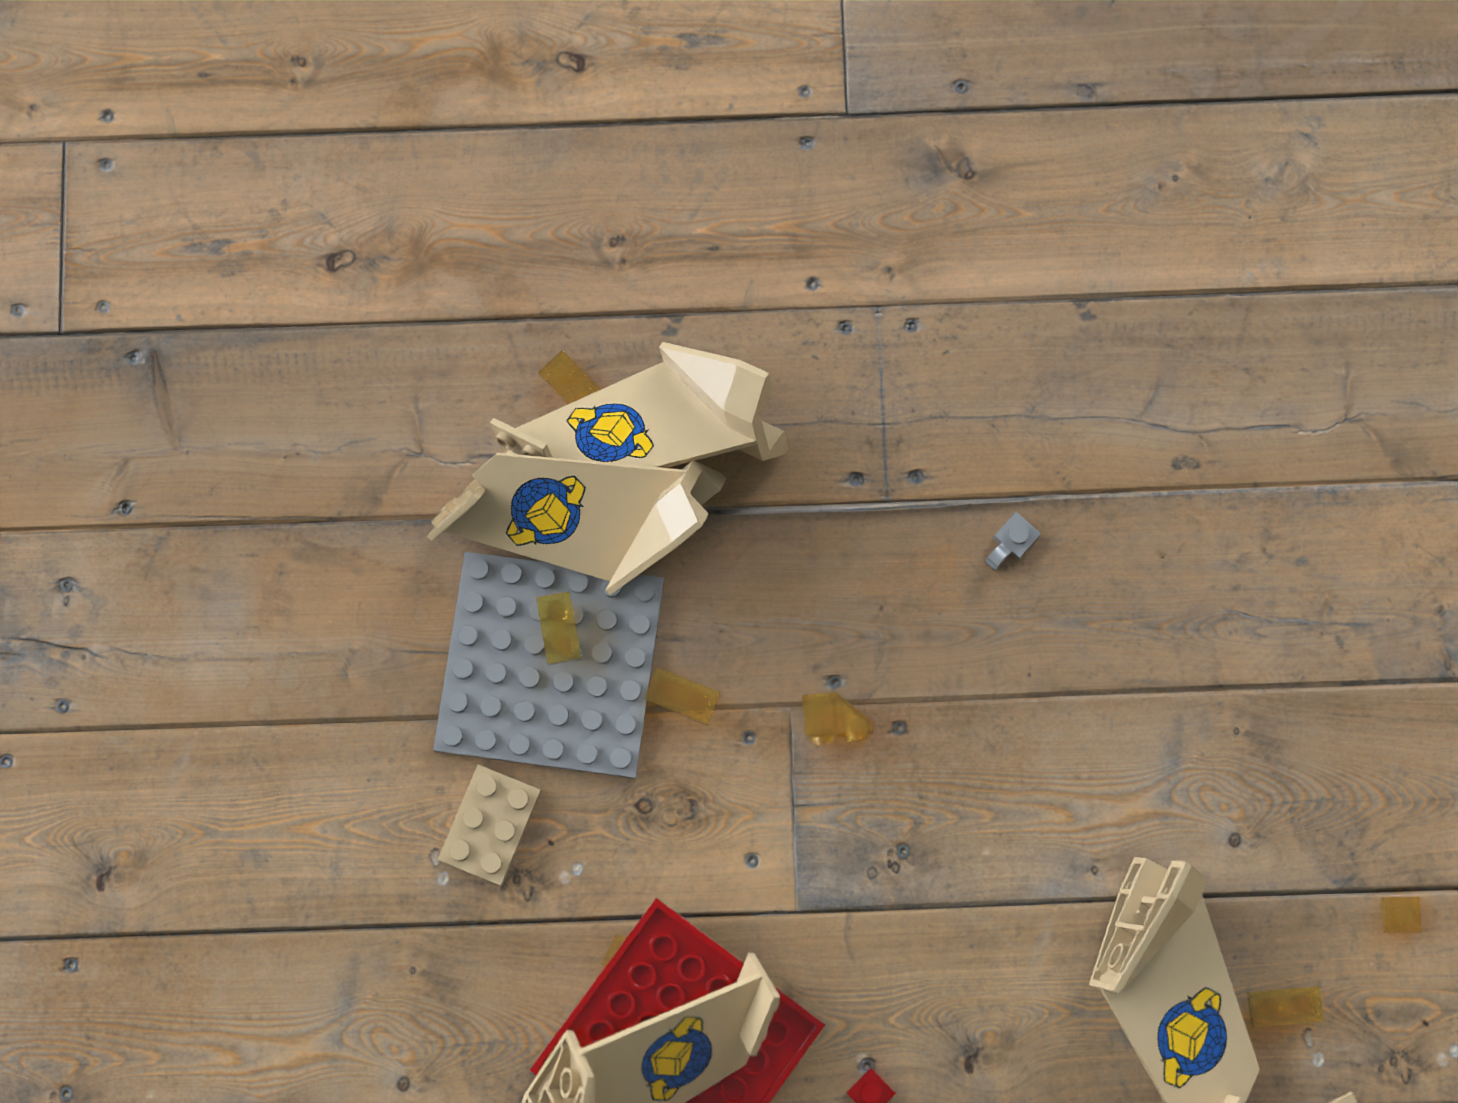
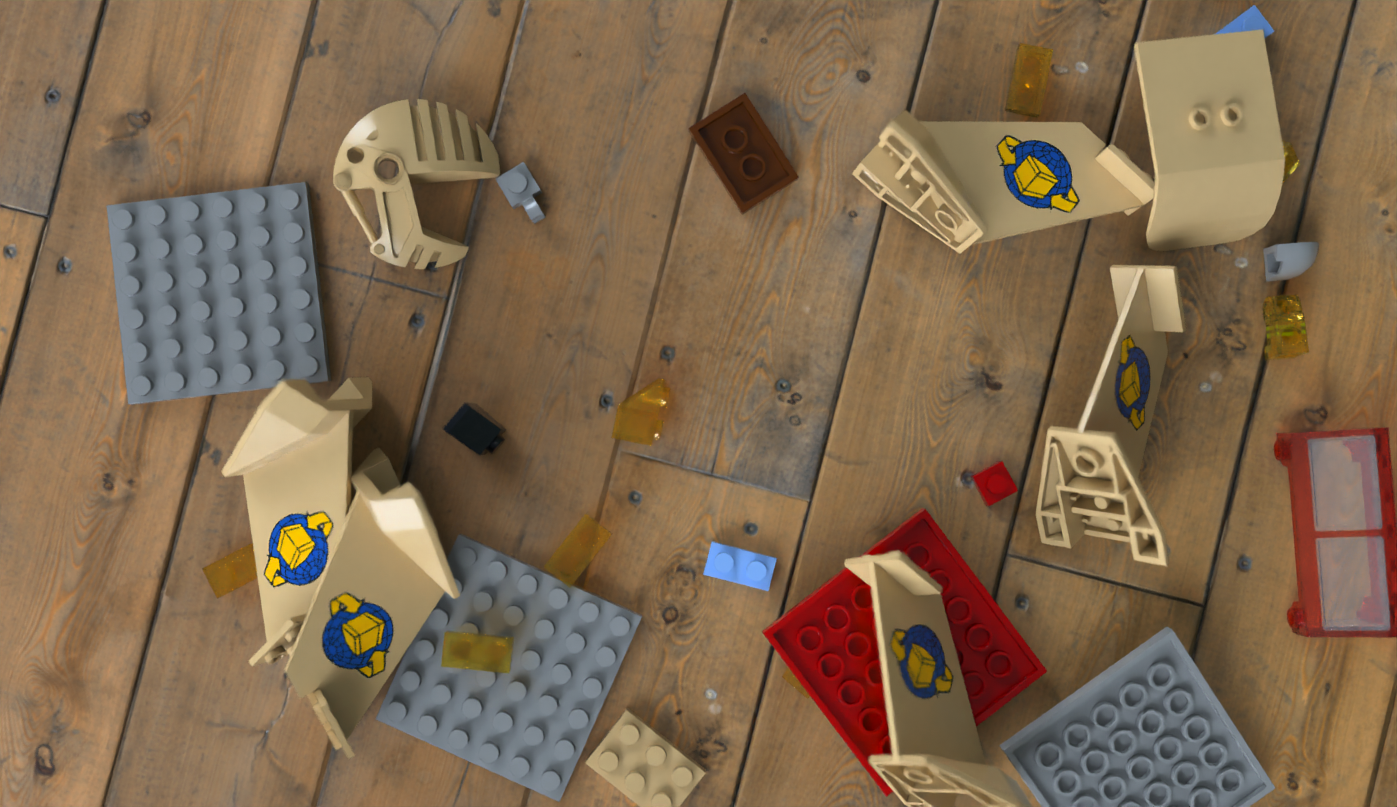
camera: 75 degrees left, 10 degrees up
(712, 859) = (740, 566): none -> light blue plate
(770, 564) = (476, 429): none -> black slope
(825, 289) = (218, 293): none -> light grey plate
(1024, 438) = (426, 148): none -> tan piece
(1118, 743) = (743, 153): none -> reddish brown plate

